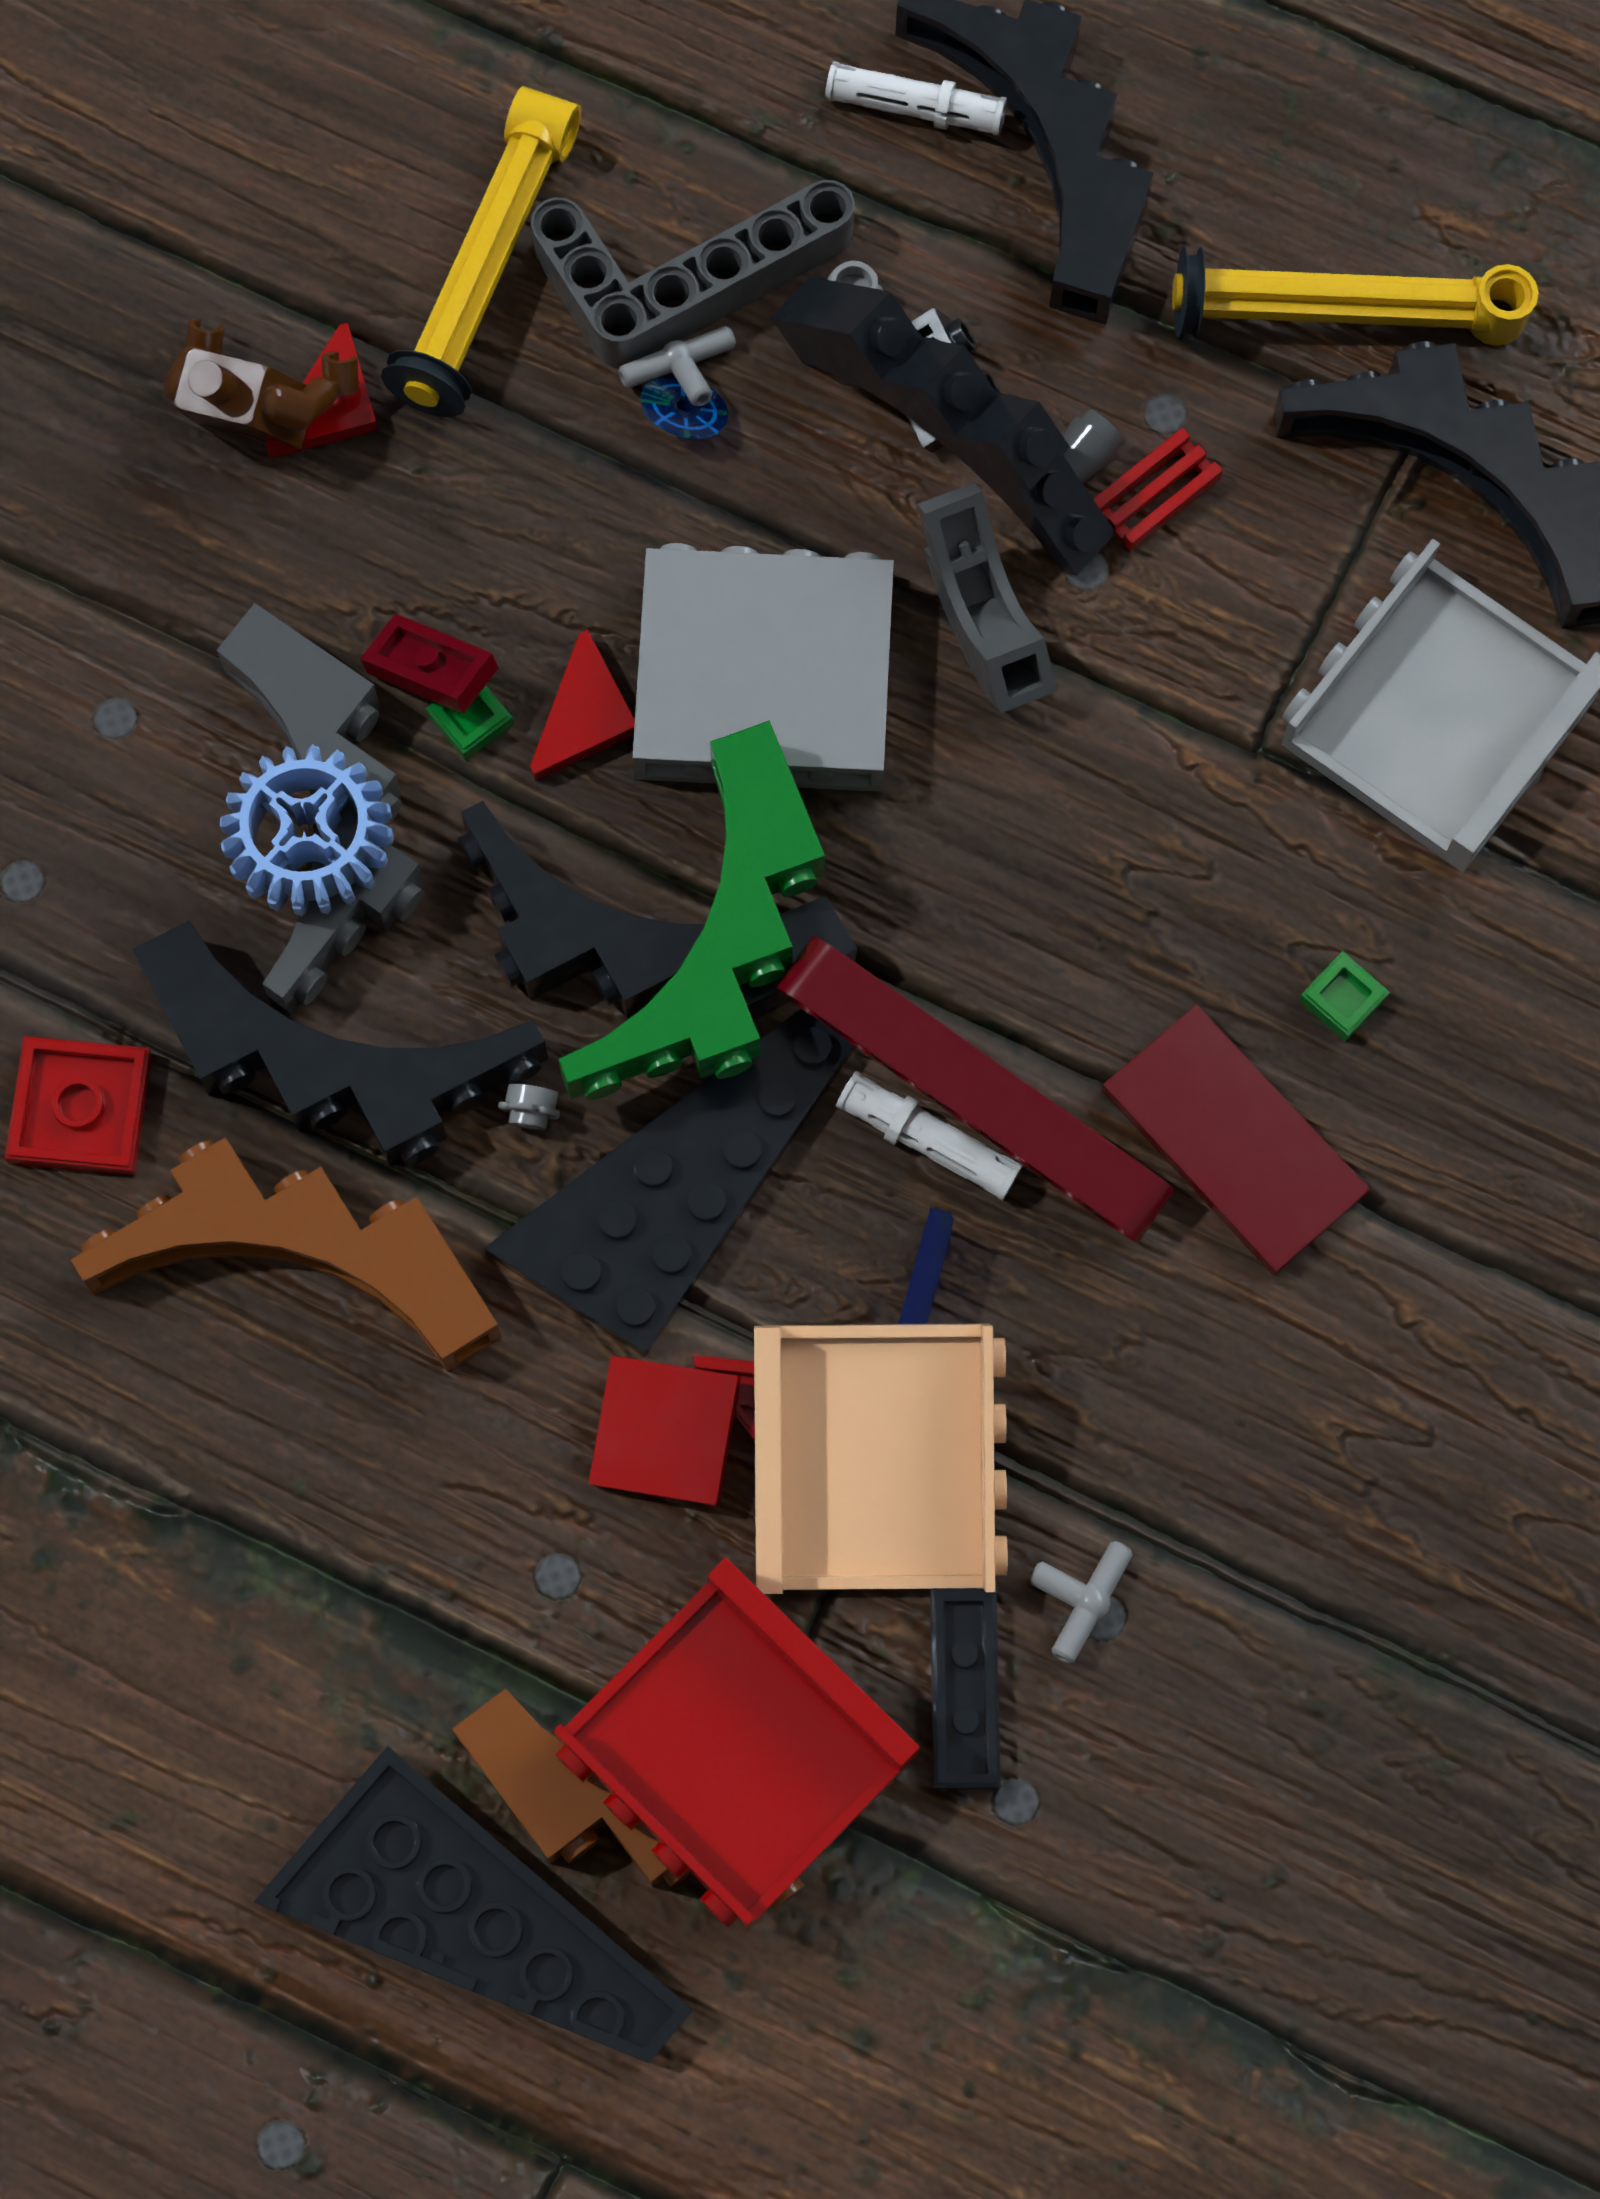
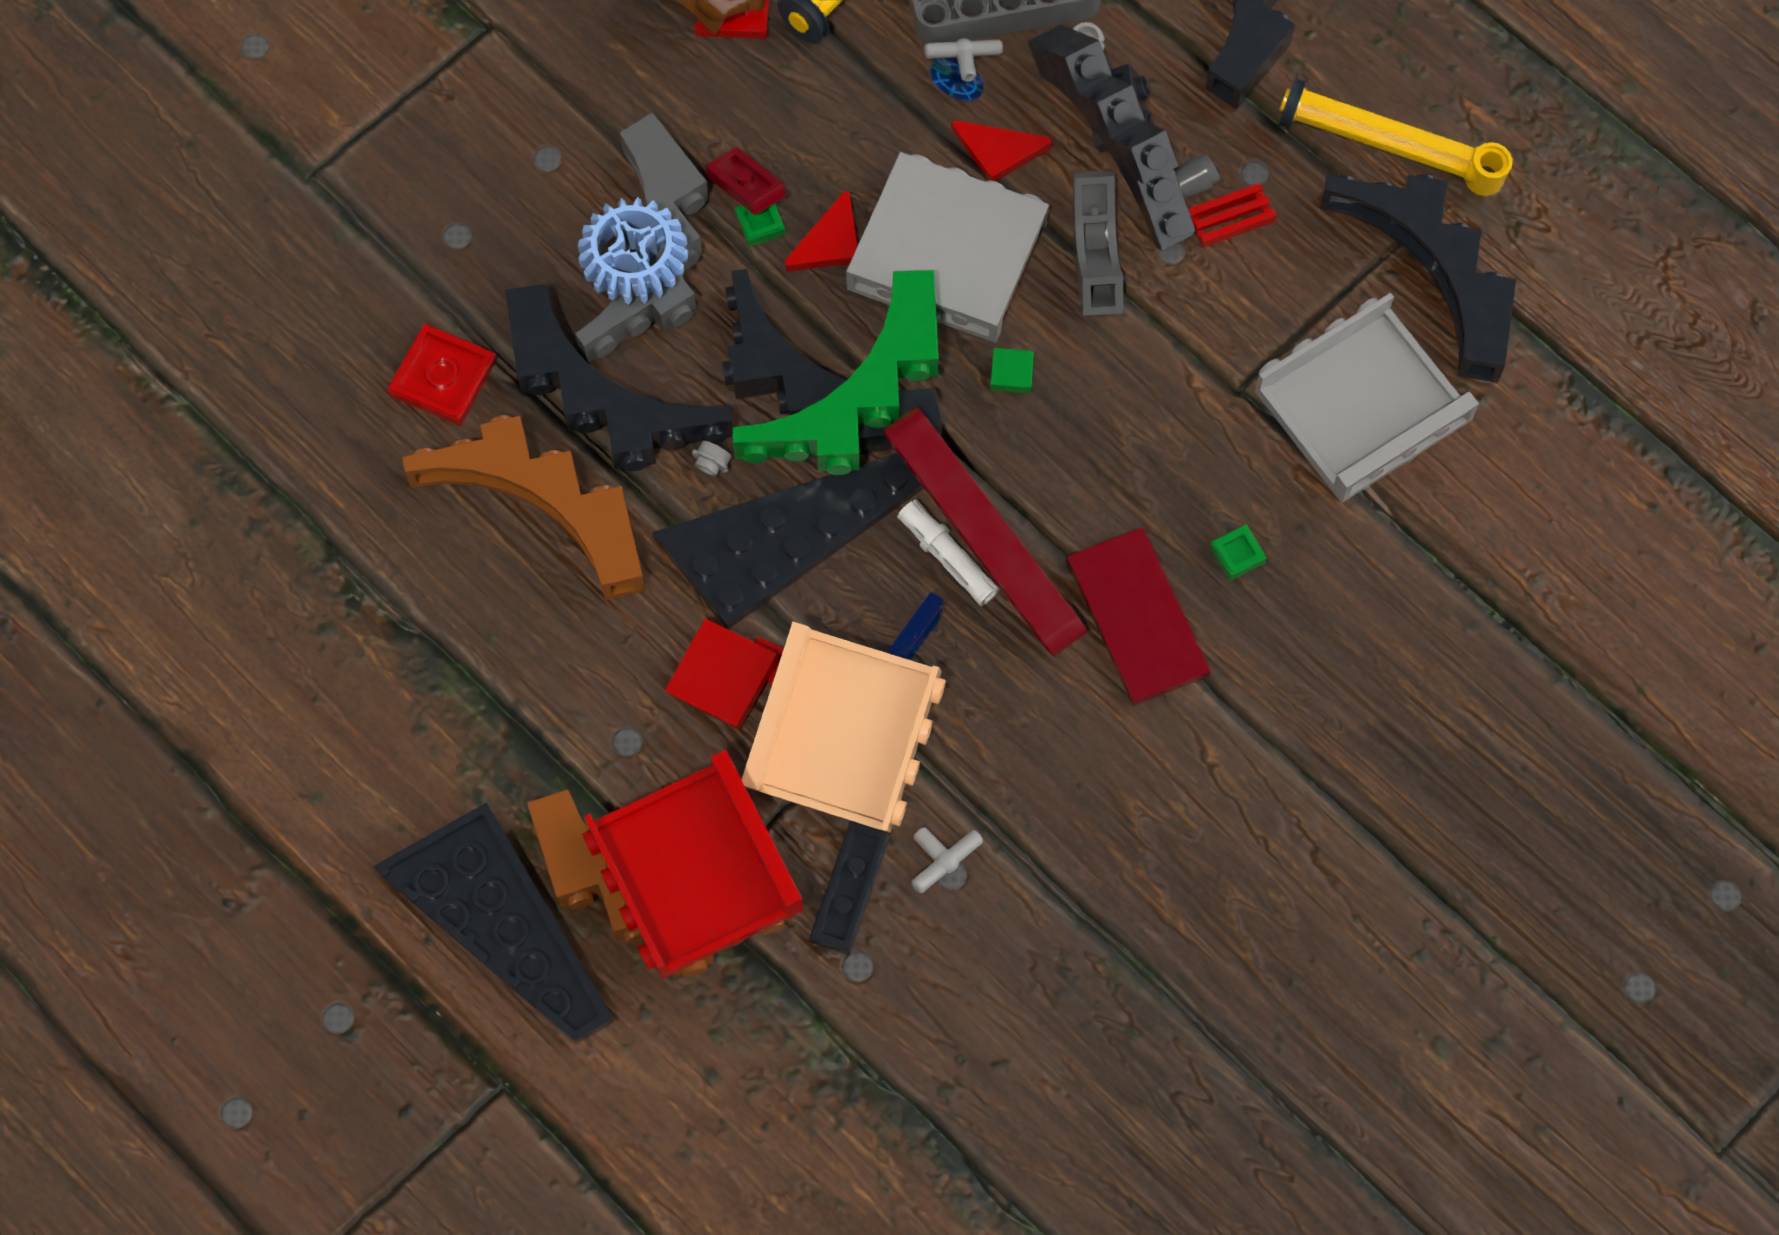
camera: 20 degrees right, 5 degrees down
(782, 495) = (998, 149): none -> red tile
(922, 827) = (1012, 370): none -> green tile

